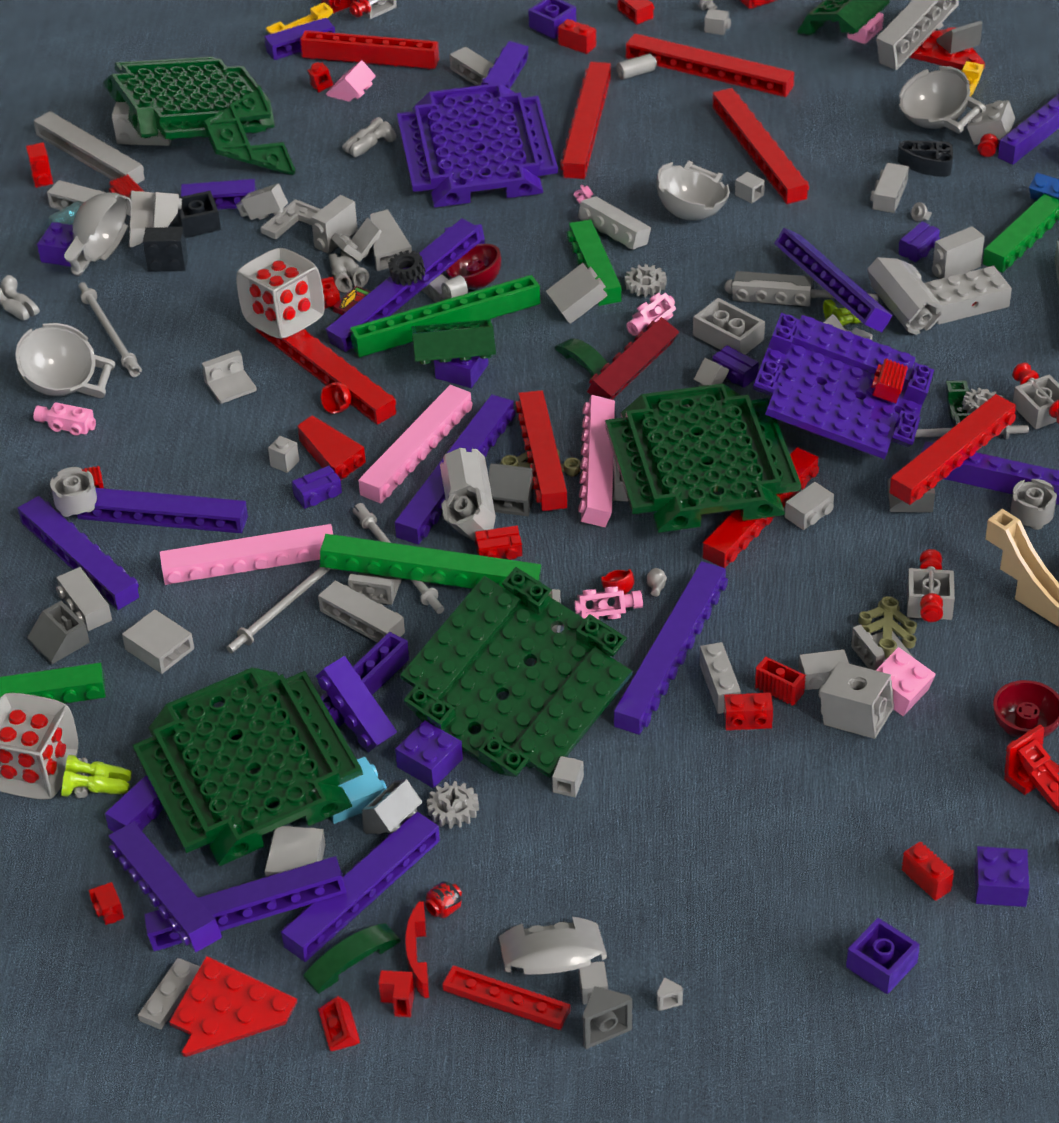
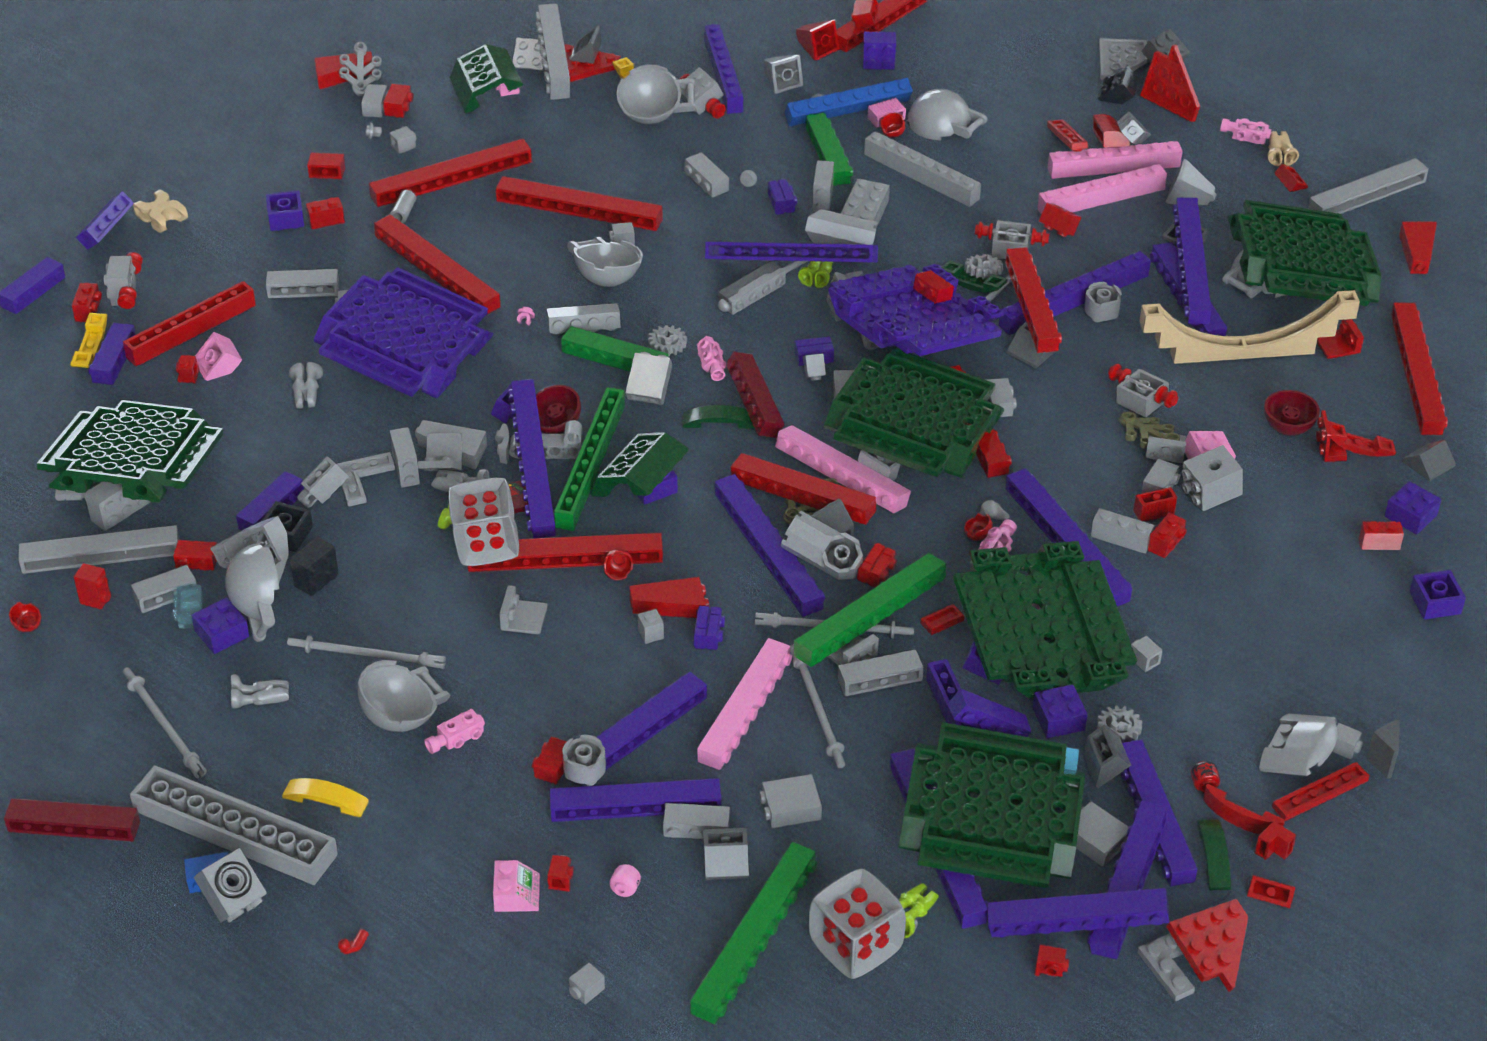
camera: 55 degrees left, 0 degrees up
(231, 141) = (224, 453): dark green wing -> none
(408, 275) = (532, 450): black tyre -> none
(415, 444) = (717, 551): bright pink brick -> none
(507, 65) = (336, 264): dark purple brick -> none
(669, 995) = (1383, 710): light grey slope -> none
(728, 325) = (773, 330): light grey brick -> none
(927, 157) = (694, 139): black beam -> none

